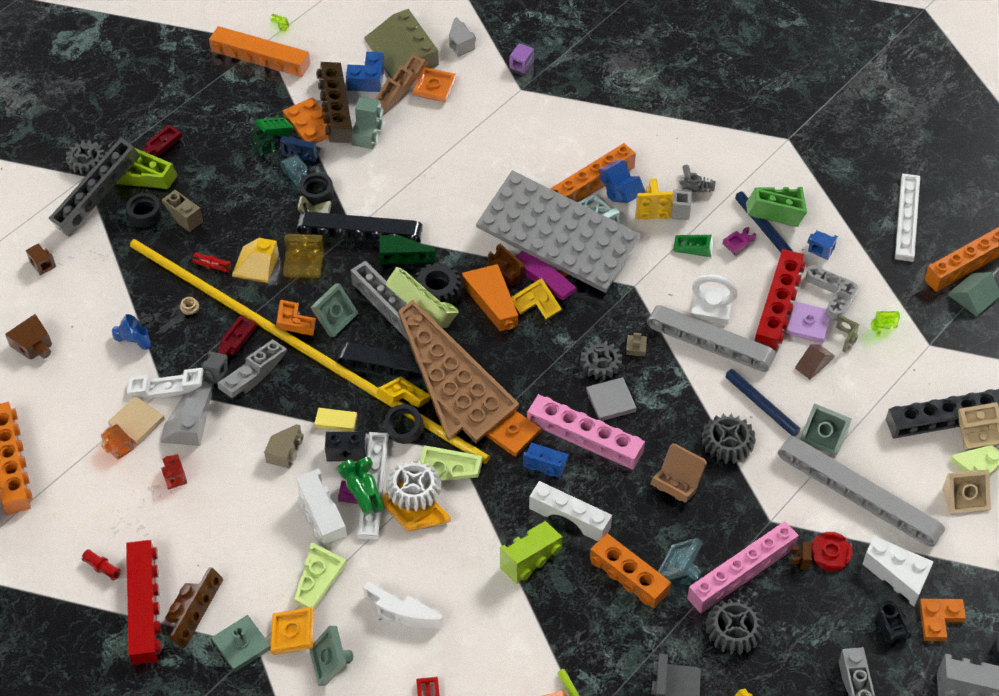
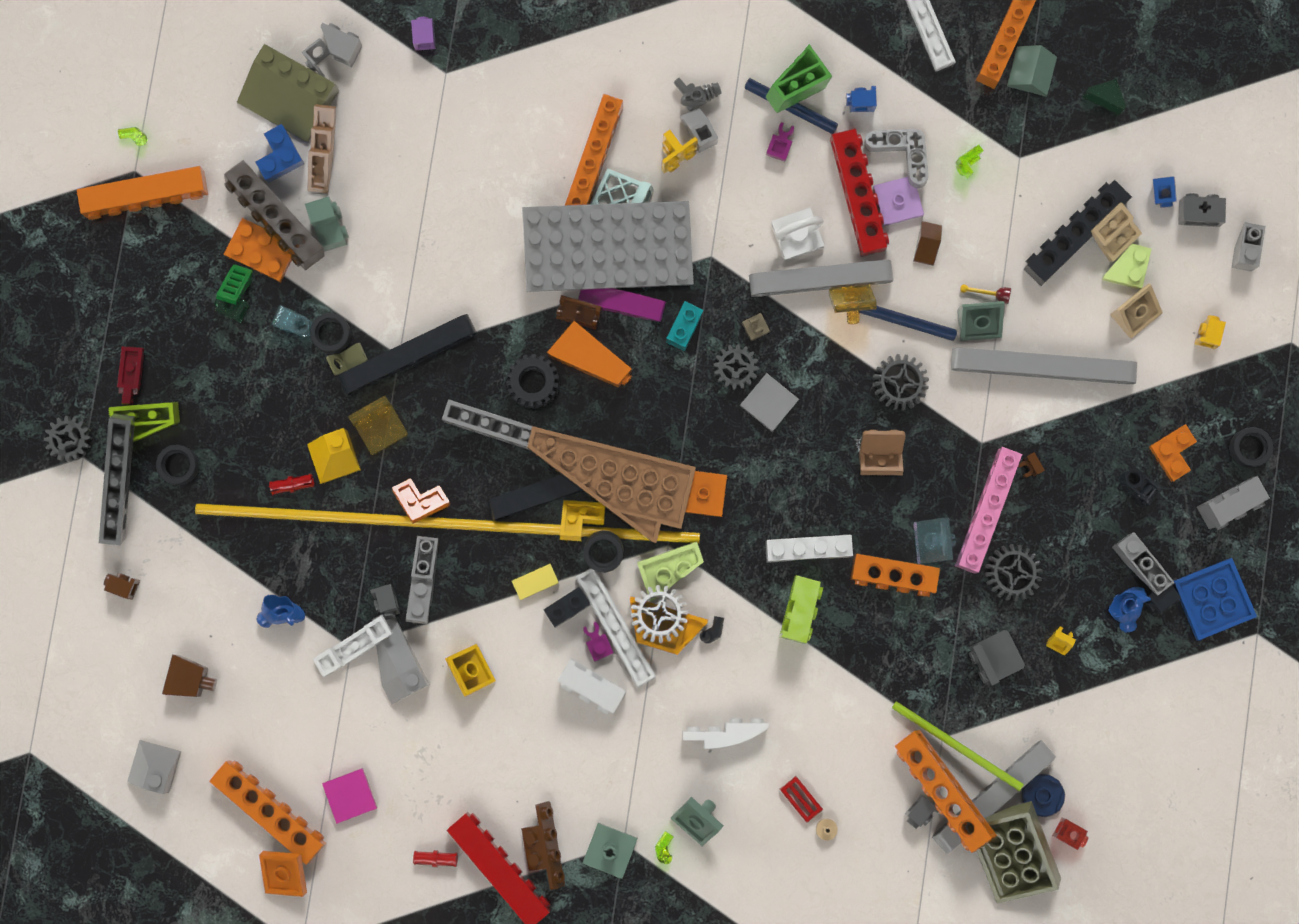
camera: 35 degrees left, 30 degrees up
(76, 484) = (349, 795): none -> dark pink tile
(116, 442) = (354, 734): clear orange brick -> none
(137, 419) = (352, 698): tan tile -> none
(173, 471) = (428, 729): clear red brick -> none
(183, 210) = (218, 443): dark tan slope -> none
(189, 306) = (301, 546): tan plate -> none
(236, 336) = (379, 554): dark red hinge -> none
(236, 448) = (470, 670): none -> yellow slope
(283, 446) = (509, 643): dark tan slope -> none
(283, 666) = (662, 850): none -> clear neon green arm
(292, 631) = (647, 813): light orange tile -> none
(304, 149) = (279, 294): dark blue bracket -> none
(318, 576) = (631, 747): yellowish green wing -> none
(334, 310) = (454, 470): sand green tile -> none
(361, 484) = (615, 641): green piece -> none
(401, 250) = (466, 356): dark green slope -> none
(409, 289) = (531, 412): yellowish green beam -> none
(433, 34) = (312, 61): none -> light grey bracket
(434, 84) = (356, 124): orange plate -> none
(448, 532) = (714, 632): none -> black arm
(538, 295) = (632, 331): yellow plate -> none
(545, 460) = (750, 505): blue bracket -> none
(580, 313) = (684, 326): none -> teal brick
(591, 439) = (717, 464): bright pink brick -> none
(619, 183) = (632, 149): blue brick -> none
(700, 250) = (744, 163): green slope -> none
(725, 361) = (852, 301): none -> clear yellow tile
(831, 551) = (1050, 442): red tile -> none
(853, 336) = (949, 196): olive bracket -> none
(856, 425) = (1001, 294): none -> hinge
(898, 567) = (1120, 428): white wedge -> none

